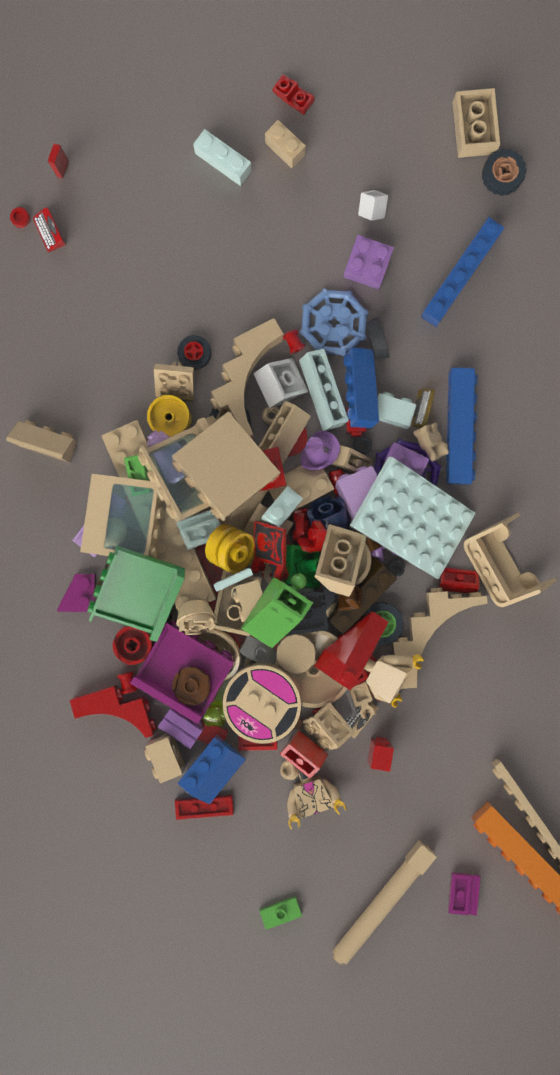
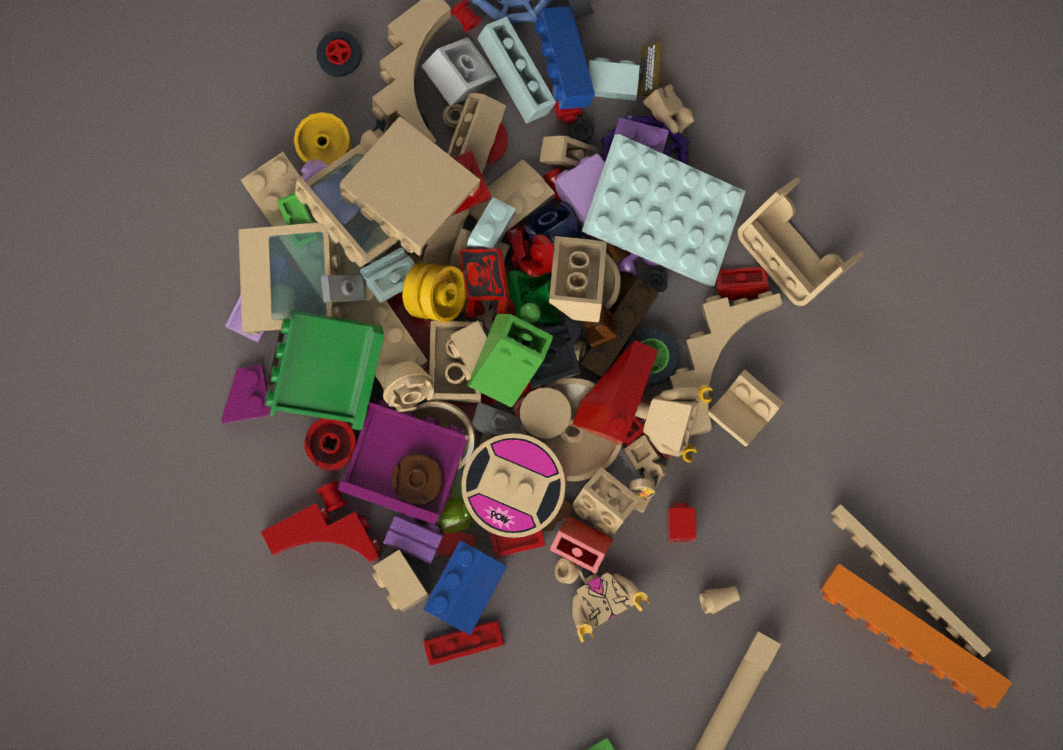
camera: 10 degrees left, 5 degrees down
(42, 440) = (163, 204): tan slope -> none
(160, 535) = (342, 288): none -> light grey plate
(174, 380) = (320, 90): tan plate -> none
(233, 579) = (446, 328): light aqua tile -> none
(320, 451) = (527, 148): medium lavender hat -> none
(357, 722) = (642, 487): none -> tan tile
(395, 812) = (716, 599): none -> tan cone
(444, 676) = (745, 408): none -> tan bracket
(460, 426) = (703, 83): blue brick -> none
(464, 894) = (828, 689): magenta plate -> none

